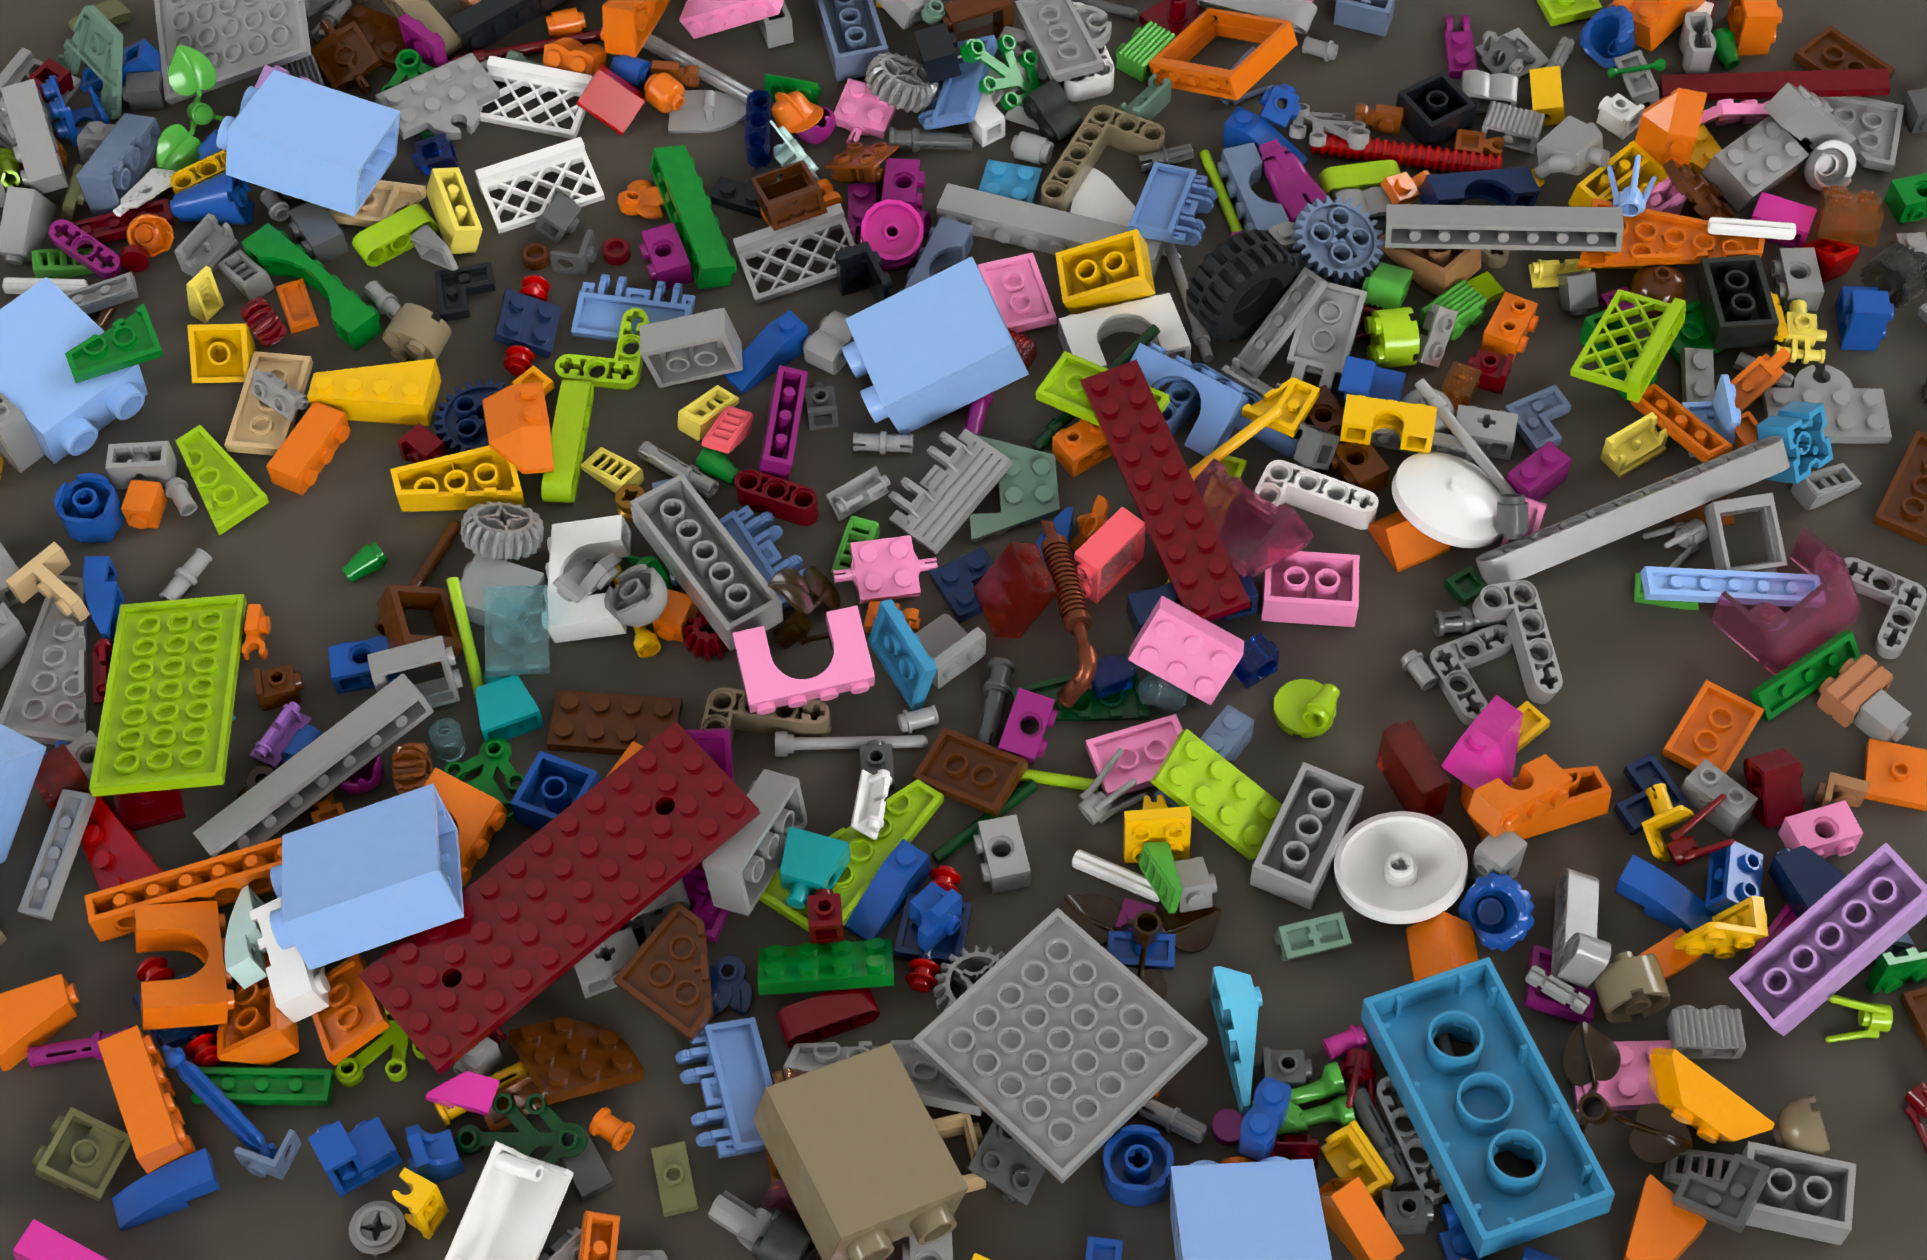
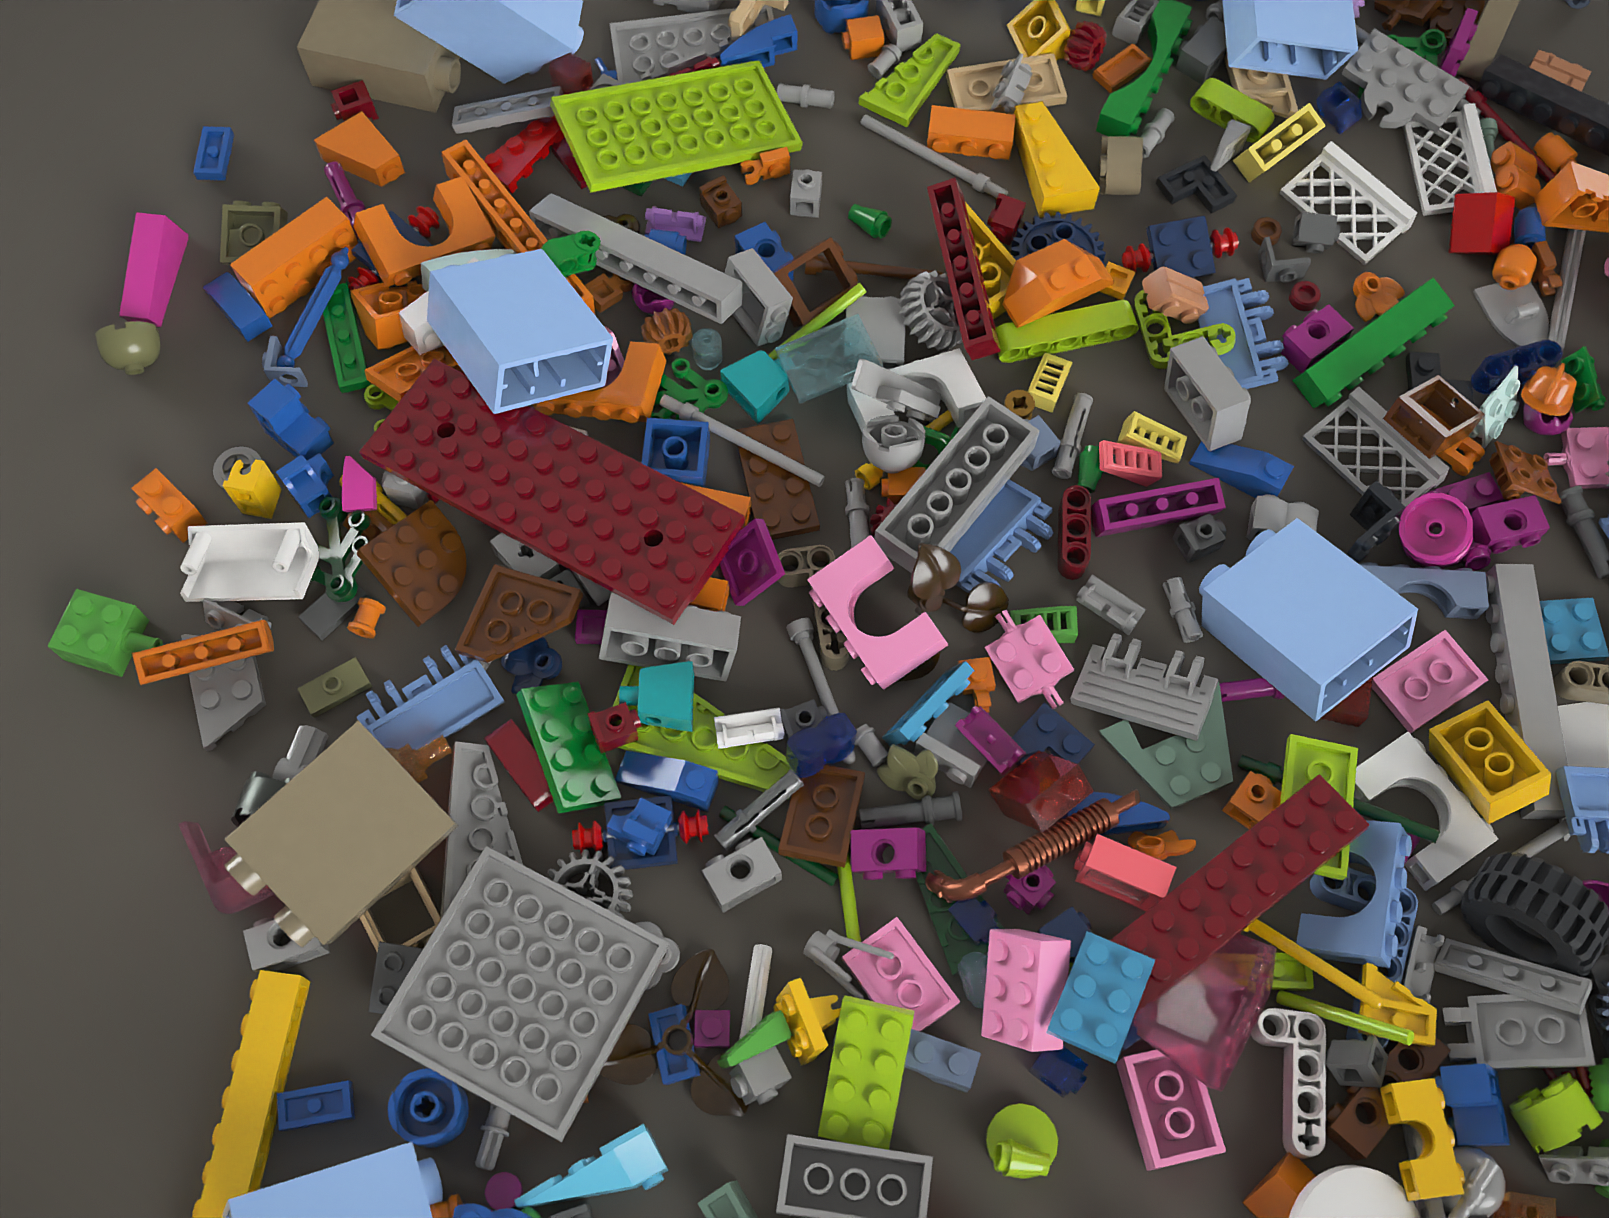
camera: 70 degrees right, 10 degrees up
(288, 813) = (571, 255): none -> green piece
(306, 607) = (805, 193): none -> light grey brick
(366, 459) = (979, 181): none -> light grey bar
(479, 484) = (963, 269): none -> dark red brick
(517, 770) = (691, 413): none -> light grey bar
(578, 339) = (1175, 295): none -> nougat brick
(694, 666) = (857, 510): none -> light grey pin
(909, 748) = (827, 743): none -> clear blue brick
(953, 619) = (990, 740): none -> magenta hinge
(954, 831) = (758, 810): none -> dark grey pin
(956, 689) = (907, 771): none -> olive plate
(1102, 630) = (1027, 897): none -> magenta brick
(1215, 588) = (1100, 997): none -> dark azure plate
(1280, 438) = (1346, 1017): none -> lime bar

